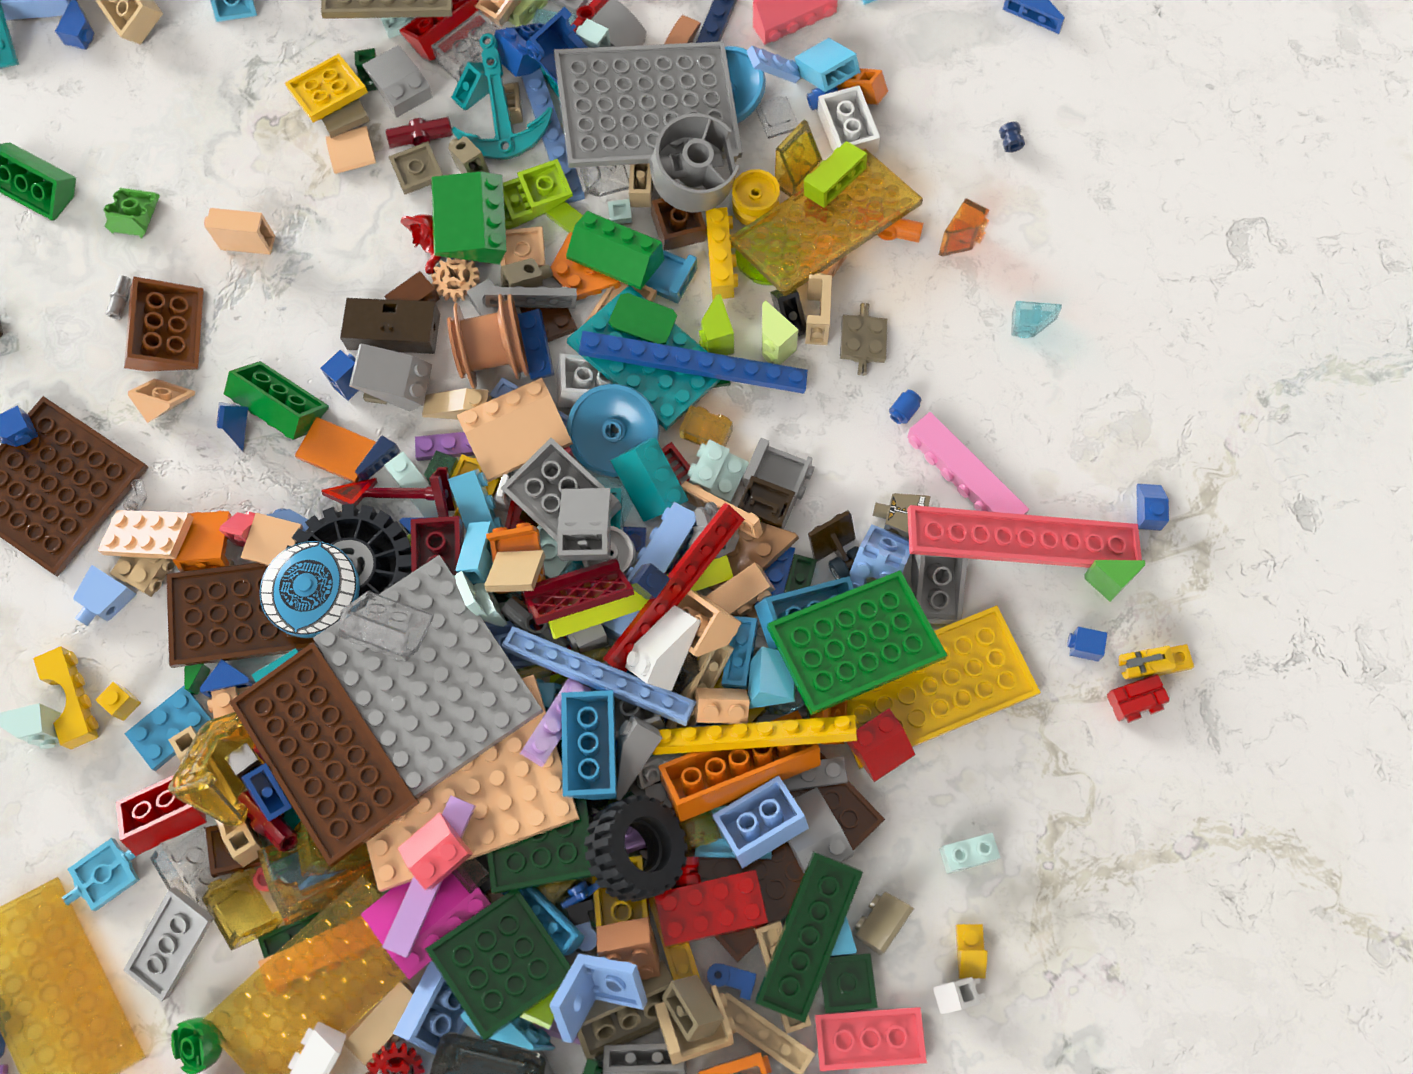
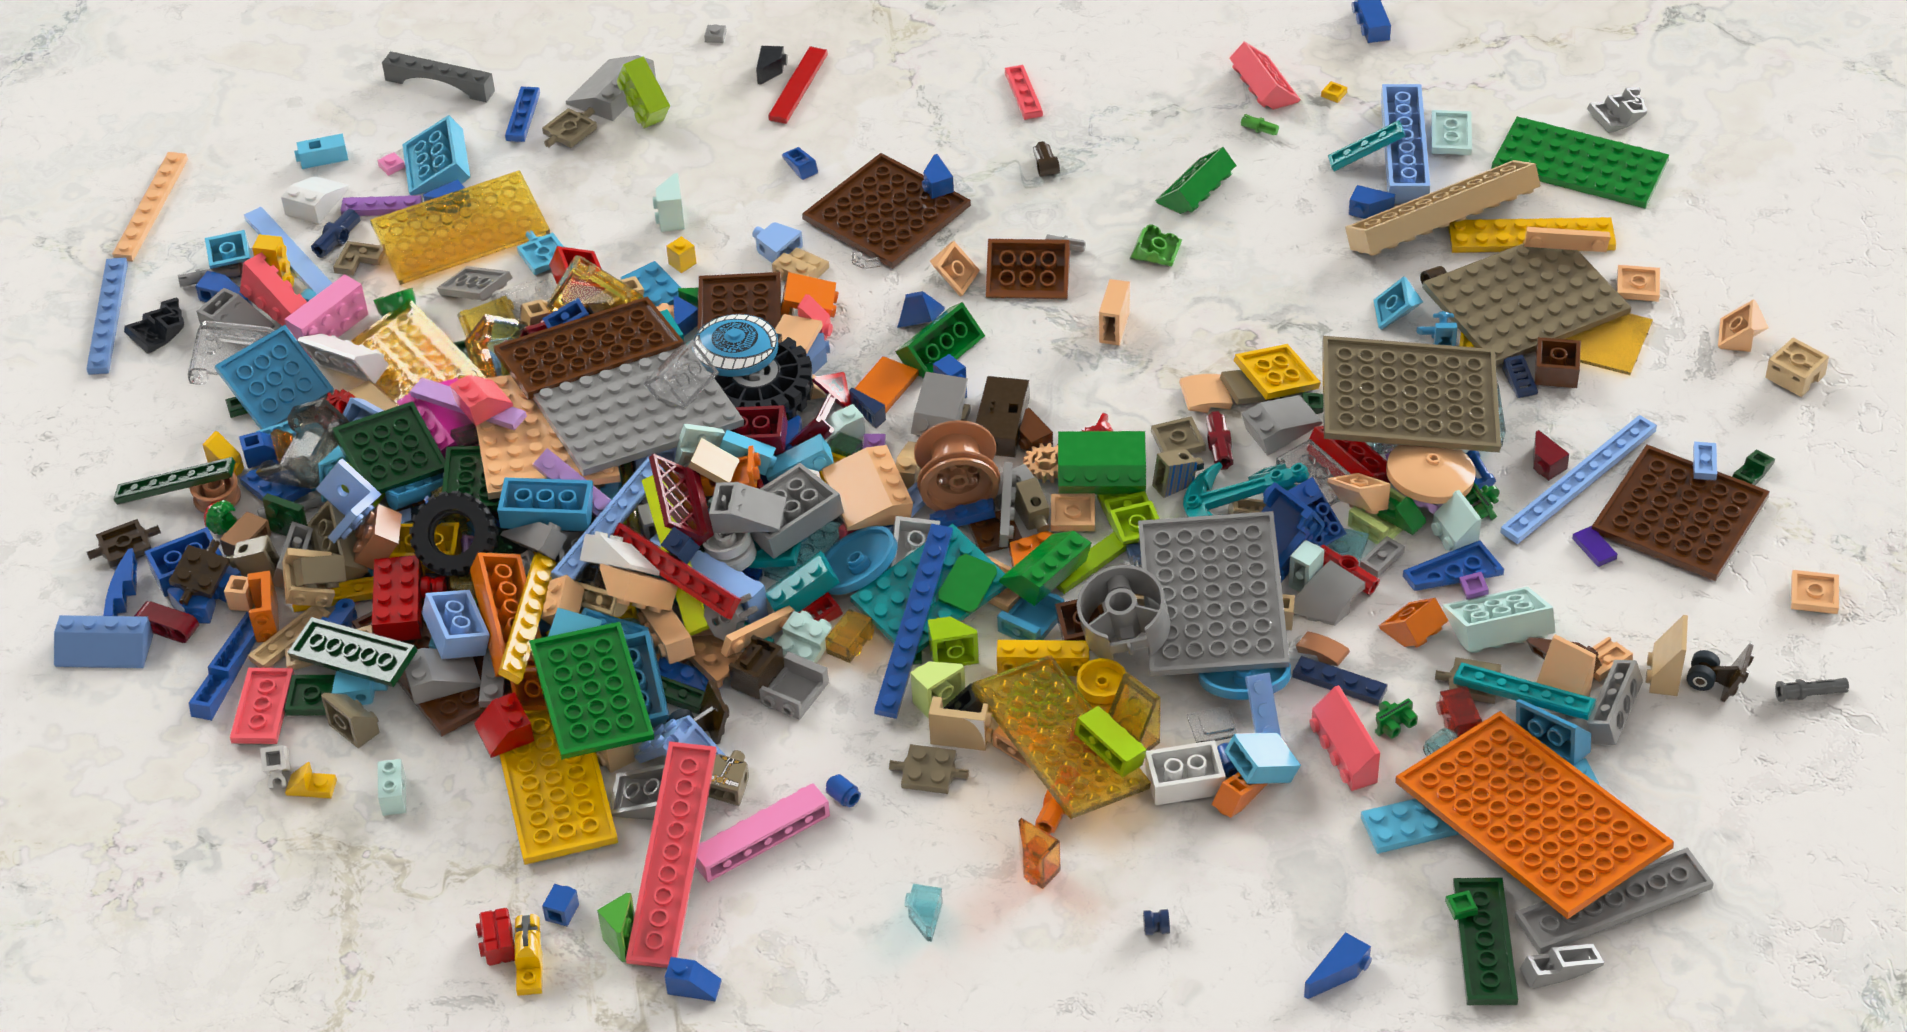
camera: 95 degrees right, 25 degrees down
(76, 722) = (716, 222): yellow arch -> none
(146, 534) = (821, 261): light nougat plate -> none

